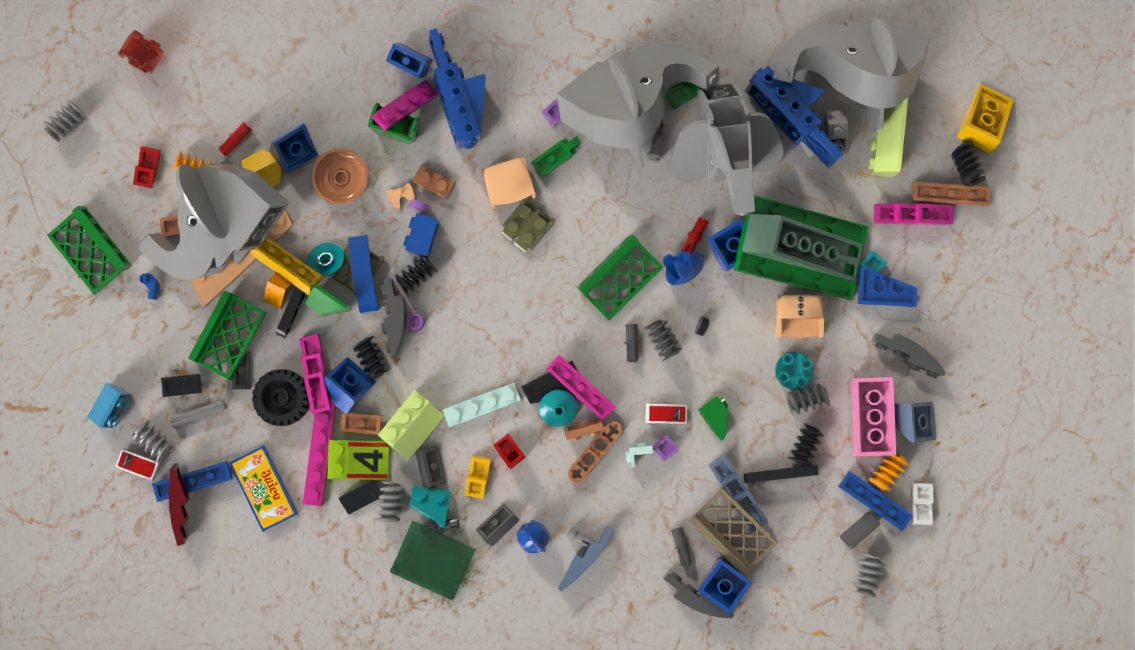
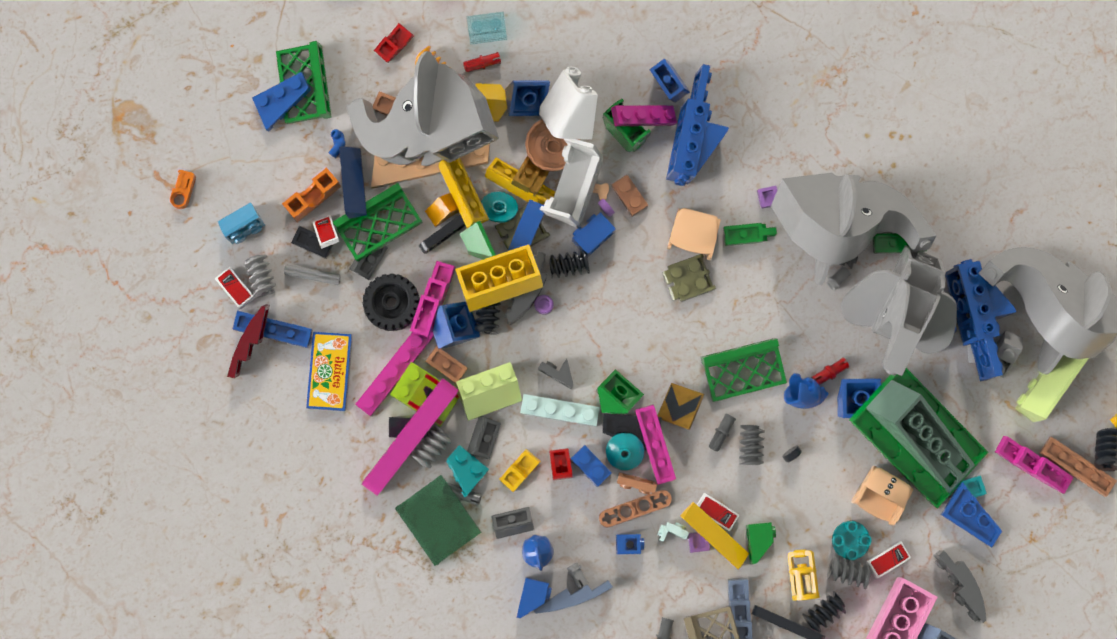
camera: 25 degrees right, 5 degrees down
(39, 402) = (184, 187): none -> orange piece
(76, 276) = (280, 98): none -> blue wing
(160, 335) = (321, 188): none -> orange arch
(184, 312) = (352, 182): none -> dark blue slope
(187, 370) = (326, 231): none -> slope
(221, 105) = (486, 28): none -> clear light blue plate
(333, 227) = (503, 175): none -> yellow slope
(335, 139) = (569, 109): none -> white windscreen
(337, 217) = (530, 177): none -> pearl gold plate
(361, 323) = (499, 278): none -> yellow brick
(366, 504) = (409, 437): none -> dark pink beam
(380, 201) = (576, 183): none -> white windscreen
(467, 373) = (562, 376): none -> dark grey slope
(523, 362) = (617, 394): none -> green slope
(536, 438) = (590, 466): none -> blue brick
(551, 577) = (533, 596): none -> blue slope
(583, 341) = (680, 406): none -> pearl gold piece
(605, 492) = (621, 547): none -> blue brick
(675, 435) = (715, 535): none -> yellow slope
(766, 421) = (802, 570): none -> yellow piece
(834, 368) = (888, 559): none -> slope

